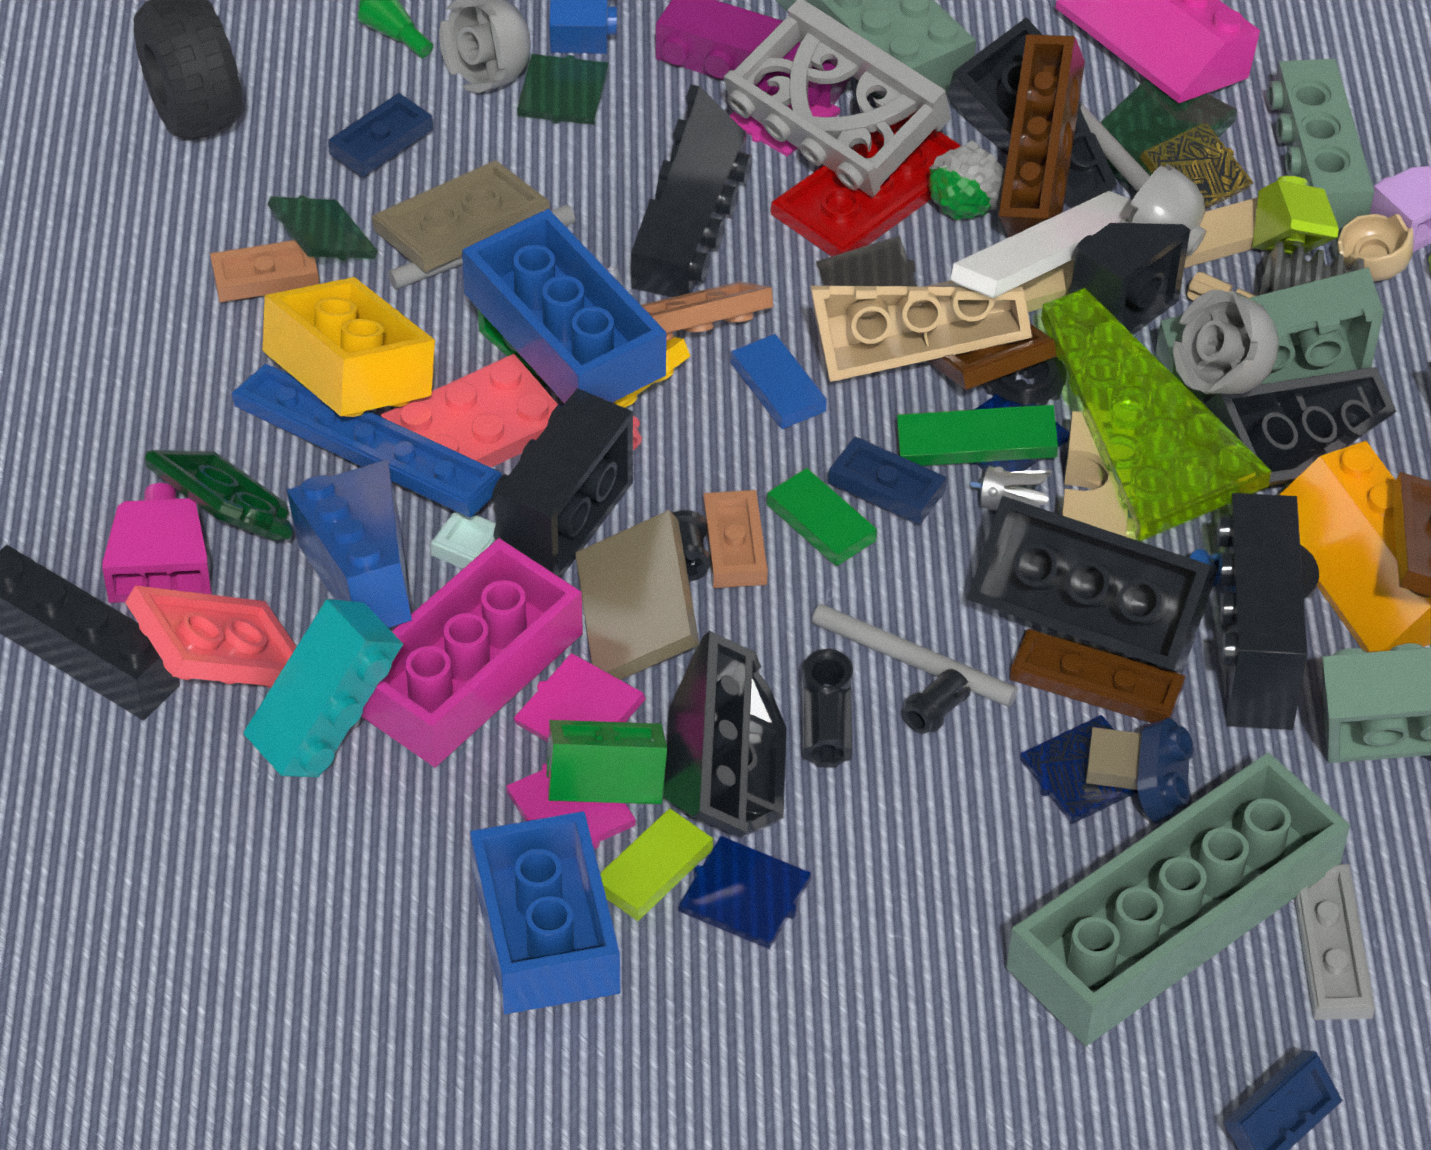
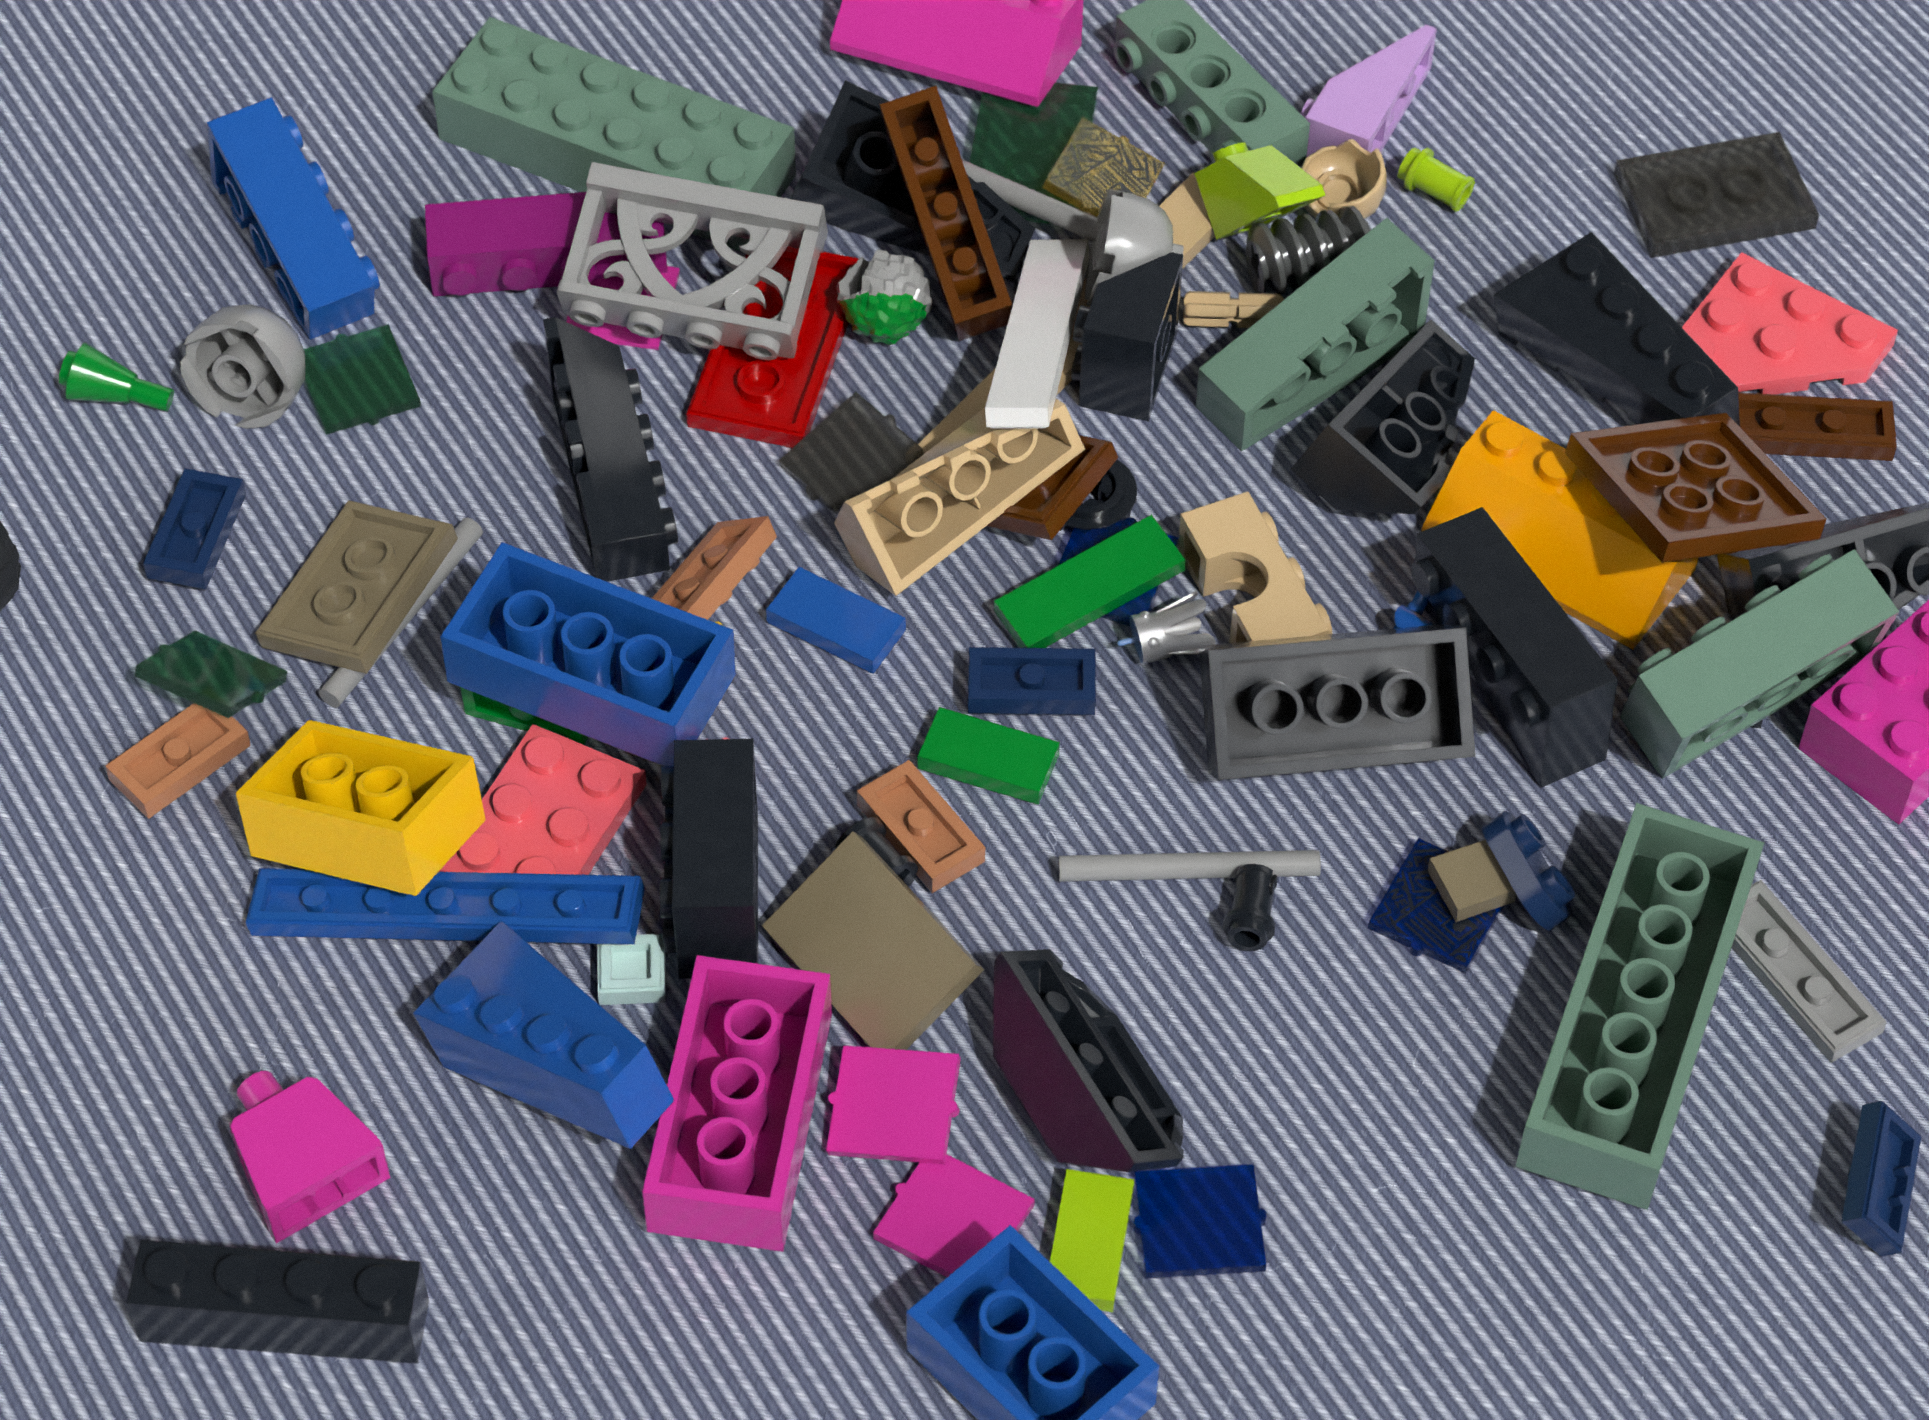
camera: 30 degrees left, 5 degrees up
(212, 635) = (463, 1228): coral plate -> none
(223, 490) = (332, 1047): dark green tile -> none
(323, 688) = (635, 1231): teal brick -> none
(606, 762) = (971, 1151): green hinge -> none
(827, 708) = (1152, 975): black piece -> none
(1097, 677) = (1385, 799): reddish brown tile -> none
(1148, 427) = (1272, 495): clear neon green wing -> none
(1225, 344) = (1305, 370): light grey cylinder -> none

